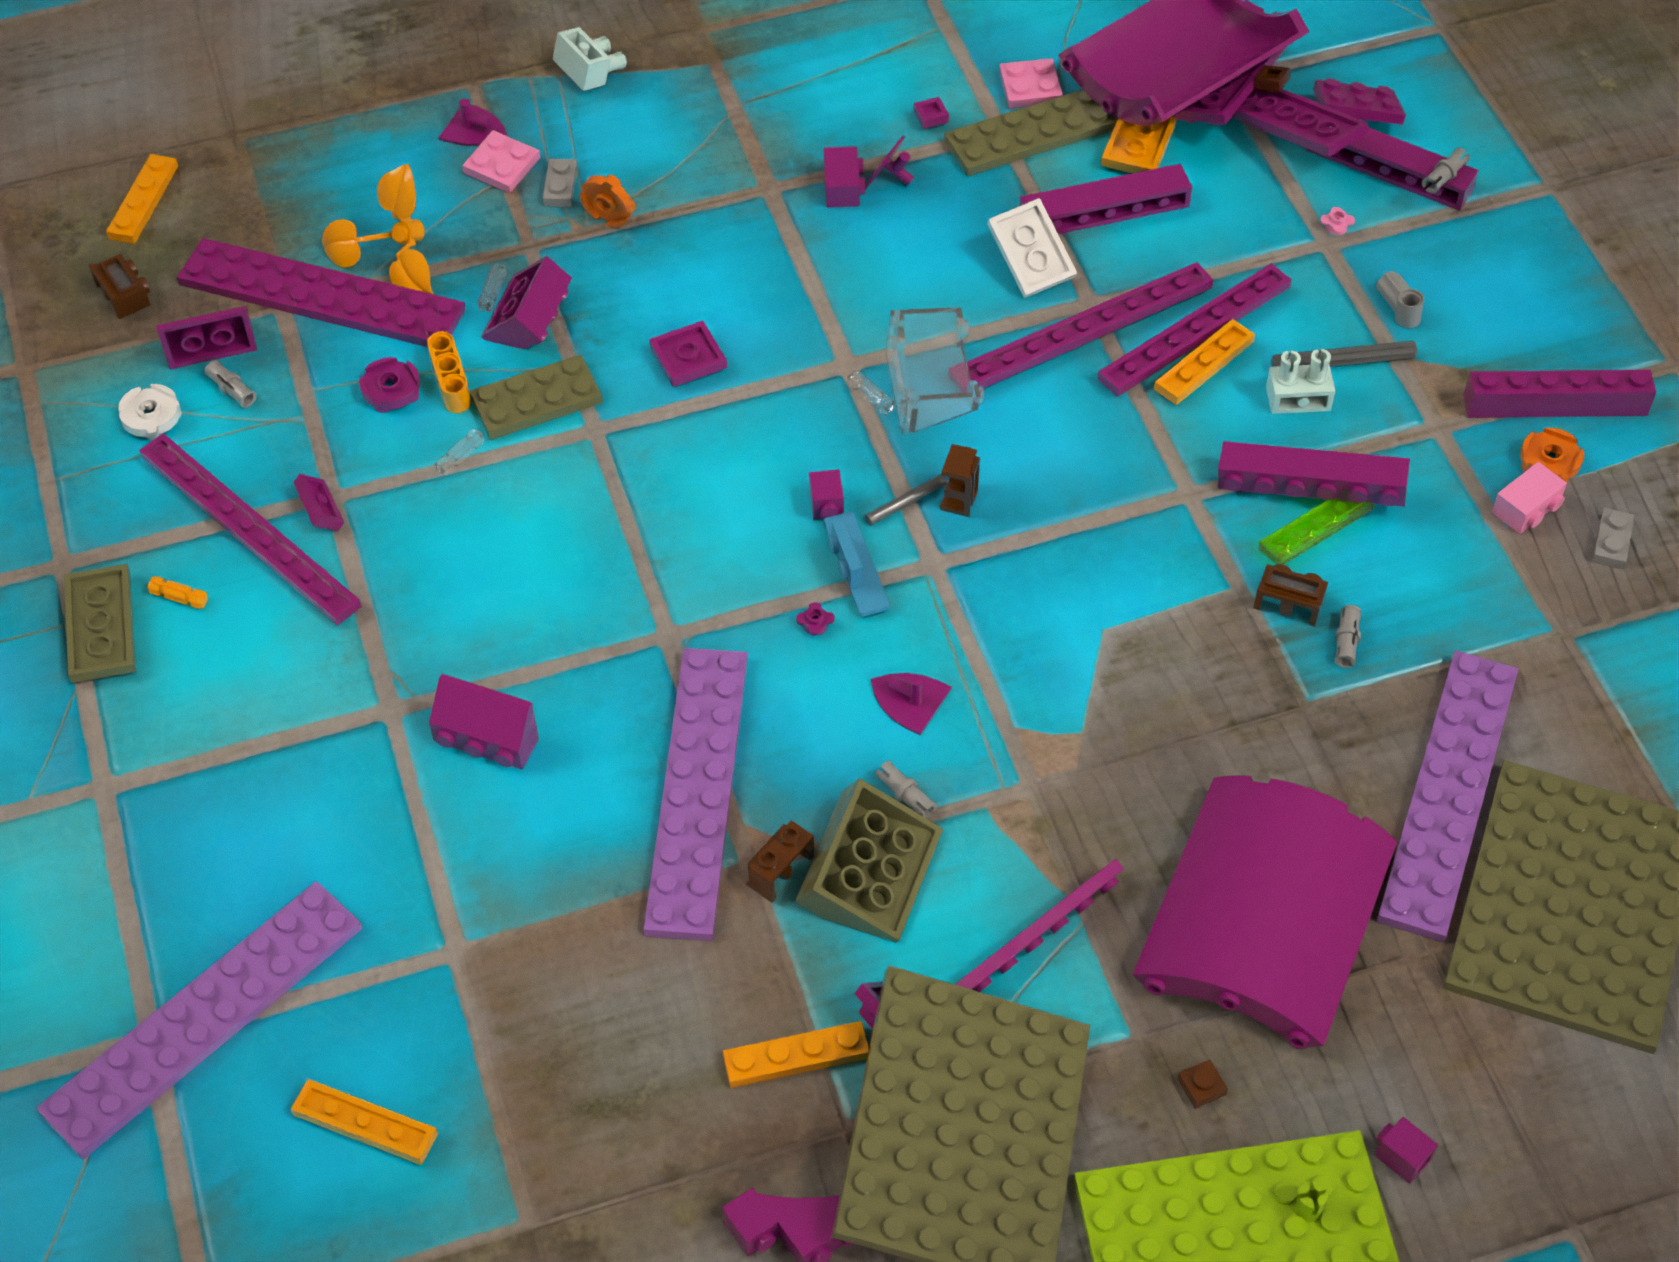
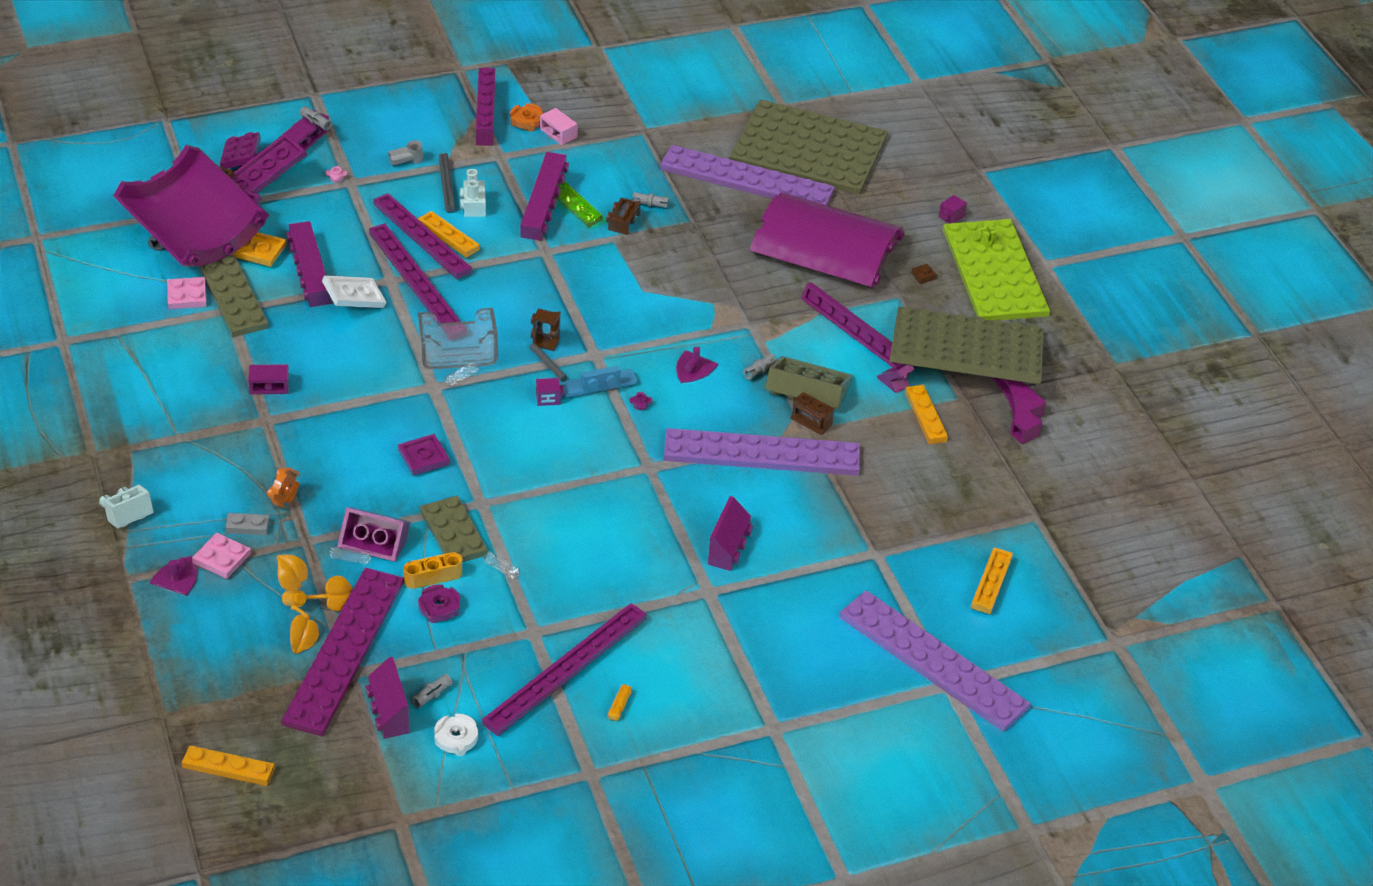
camera: 95 degrees left, 10 degrees down
(99, 623) = (647, 739): olive plate -> none
(121, 285) = (328, 761): reddish brown window -> none
(318, 502) = (555, 629): magenta plate -> none
(895, 167) = (260, 349): magenta shield -> none
(931, 112) = (211, 337): magenta plate -> none
(1613, 538) = (583, 105): light grey plate -> none

